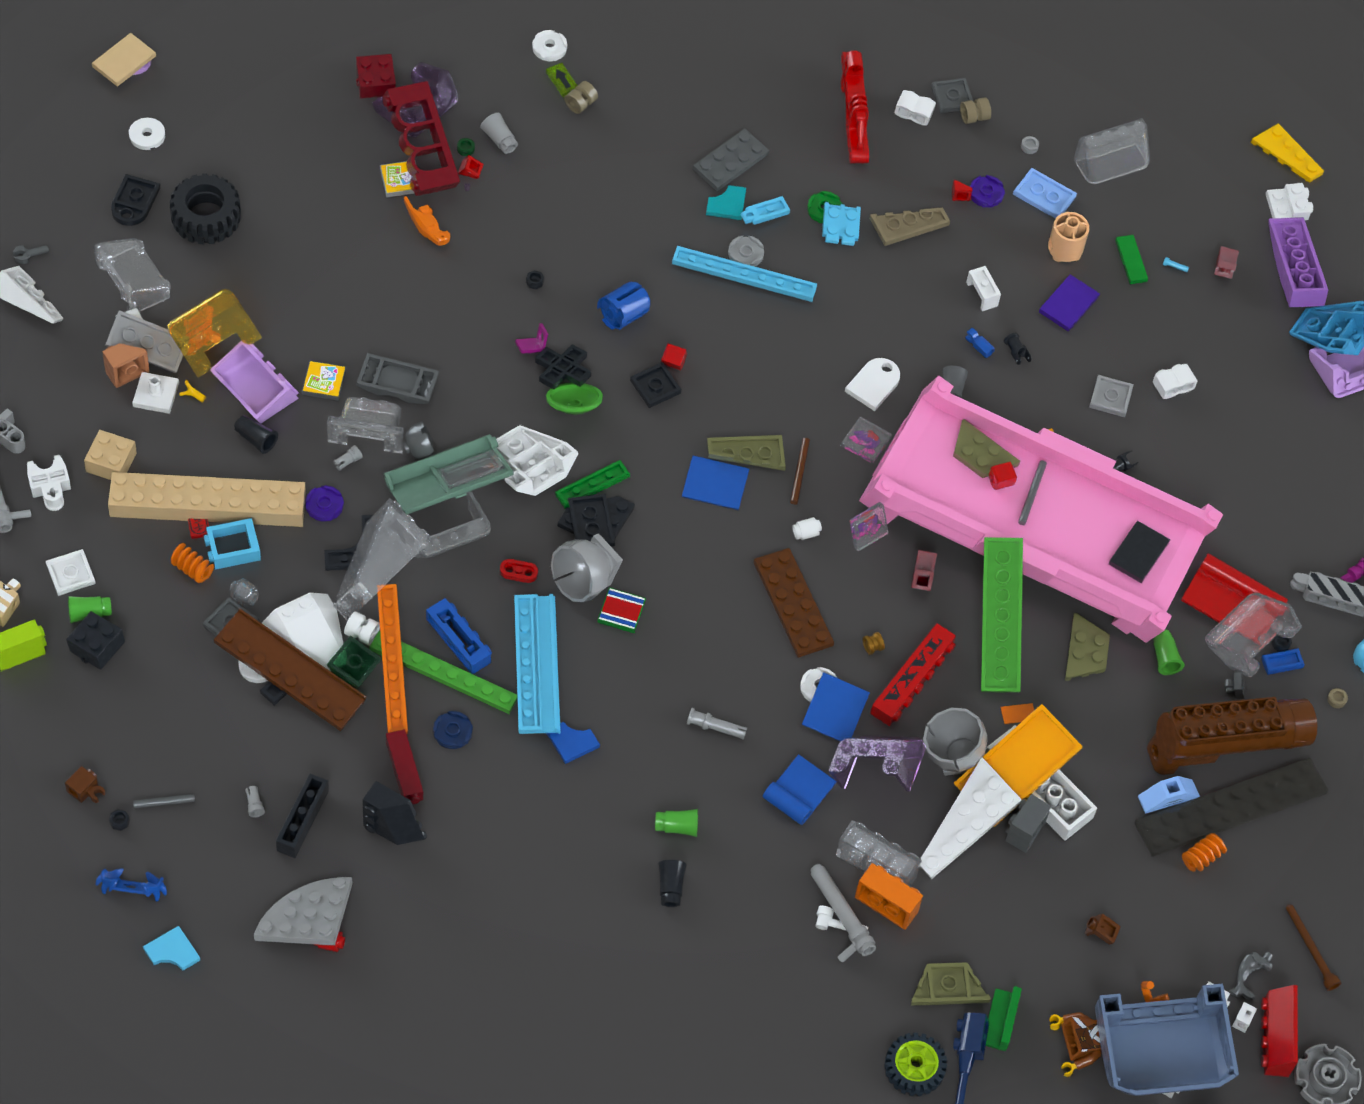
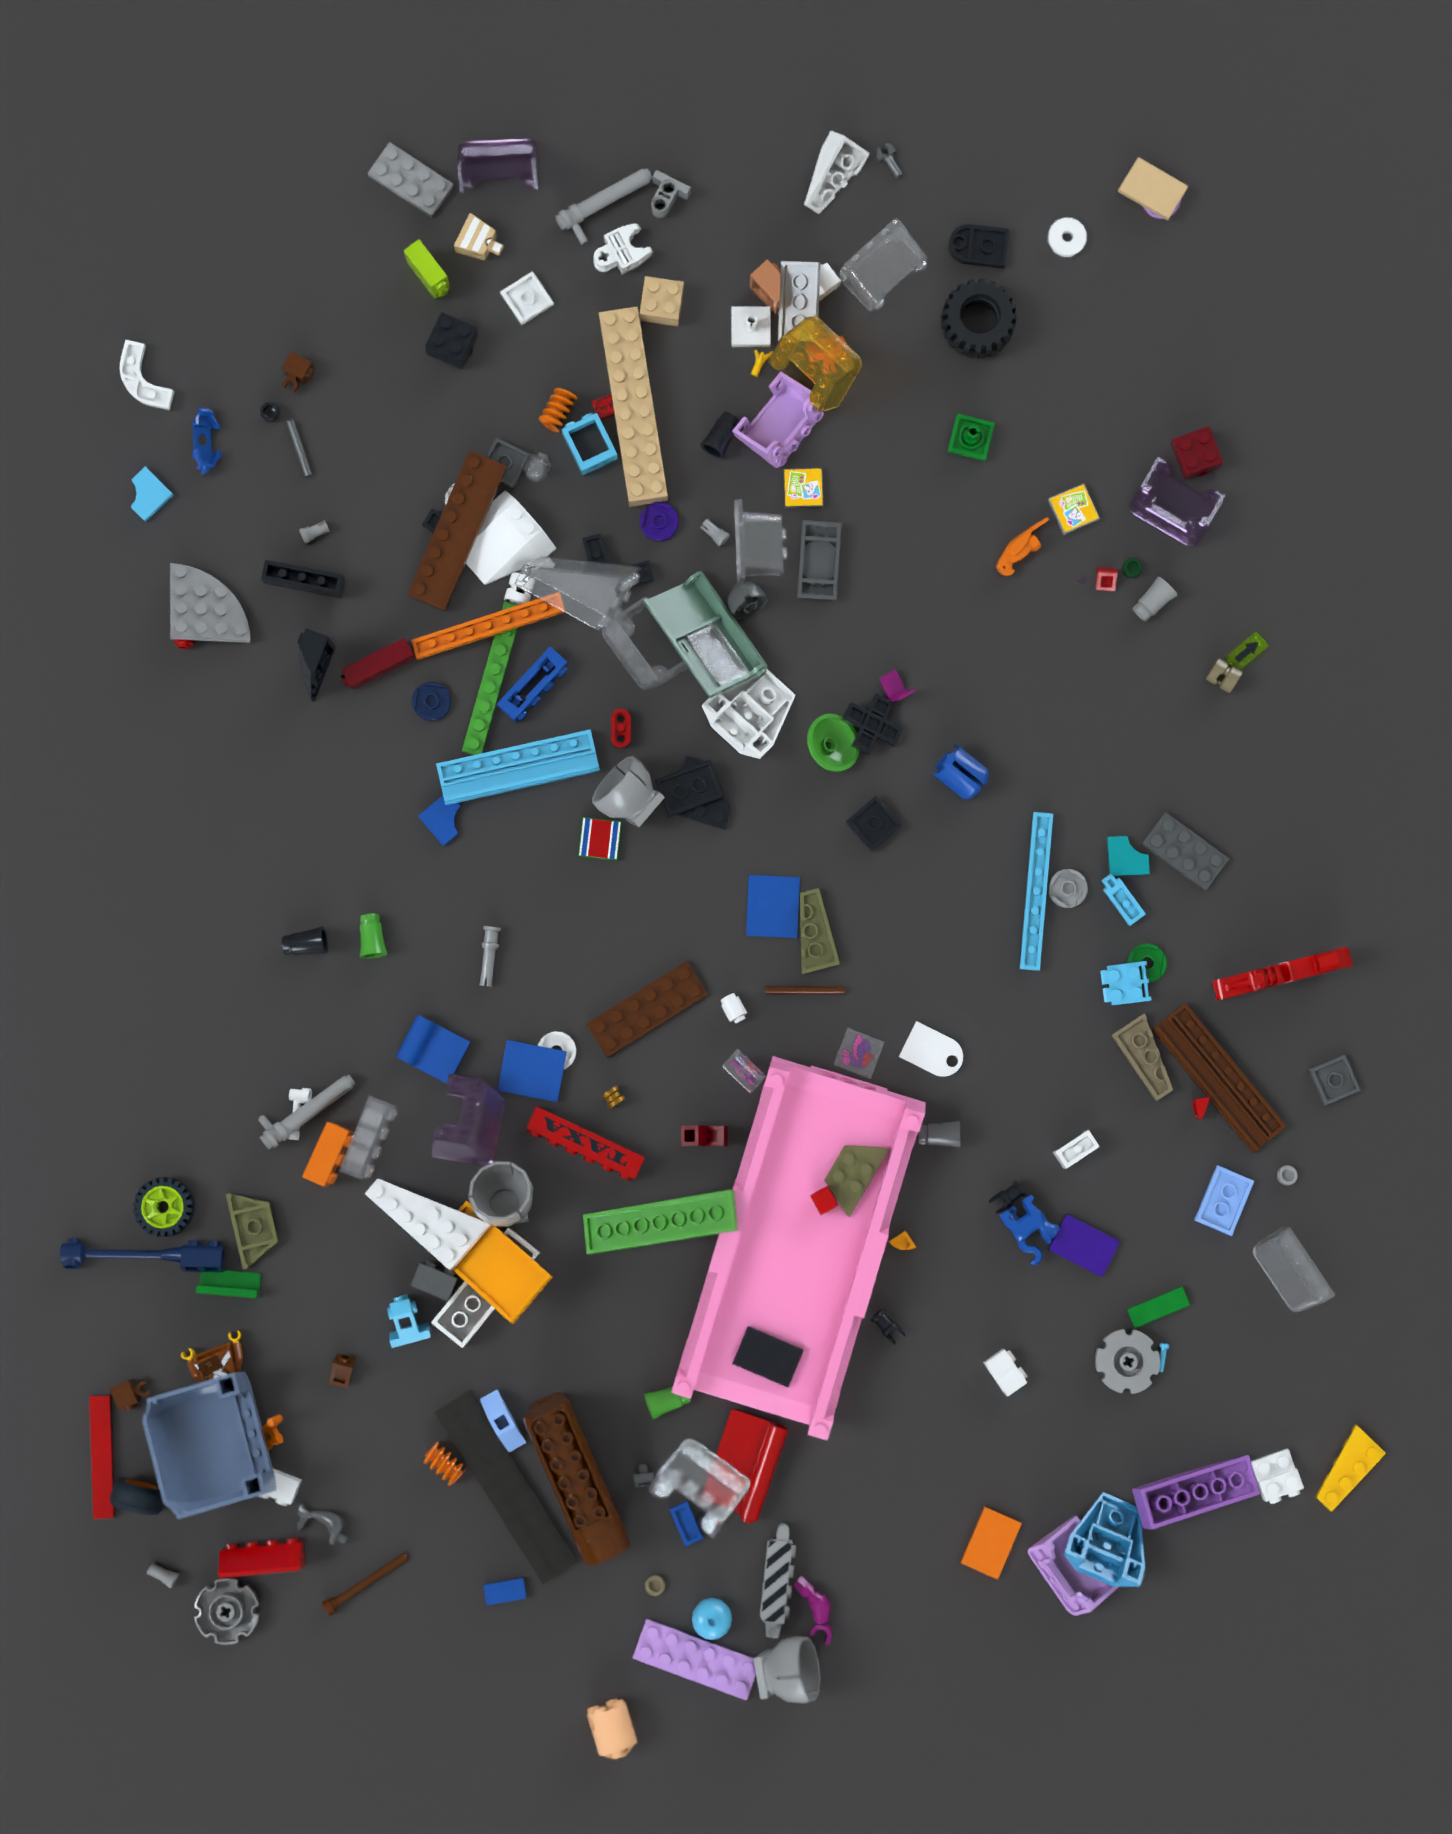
camera: 80 degrees right, 25 degrees up
(51, 940) = (135, 383): none -> white plate
(81, 606) = (486, 323): bright green plant -> none
(313, 240) = (971, 437): none -> green plate
(353, 662) = (476, 590): clear green slope -> none
(422, 181) = (1075, 546): dark red fence -> none
(535, 279) = (976, 674): black tile -> none
(549, 53) = (1280, 633): white tile -> none
(593, 483) = (741, 782): green tile -> none
(674, 356) = (910, 836): red piece -> none
(915, 107) = (1303, 1040): white brick -> none
(936, 174) = (1219, 1078): none -> reddish brown plate
(979, 109) = (1314, 1108): dark tan wheel -> none
(980, 343) = (1006, 1156): blue bar -> none
(987, 191) = (1211, 1136): dark purple tile -> none
(1016, 713) = (569, 1256): orange sticker -> none
(1032, 492) = (815, 1235): dark grey bar -> none
(1043, 335) = (1026, 1225): none -> blue animal
(1051, 860) = (401, 1308): none -> medium azure tile
(1068, 237) = (1165, 1242): light nougat cylinder -> none
(1086, 649) = (656, 1316): olive wing -> none
(1111, 396) = (974, 1305): light grey tile -> none
(1176, 289) = (1111, 1358): none -> light grey piece
(1226, 262) = (1175, 1412): brick -> none
(1244, 1017) = (275, 1518): white piece -> none
(1325, 424) = (991, 1542): none -> orange tile
(1331, 826) = (505, 1591): none -> blue tile

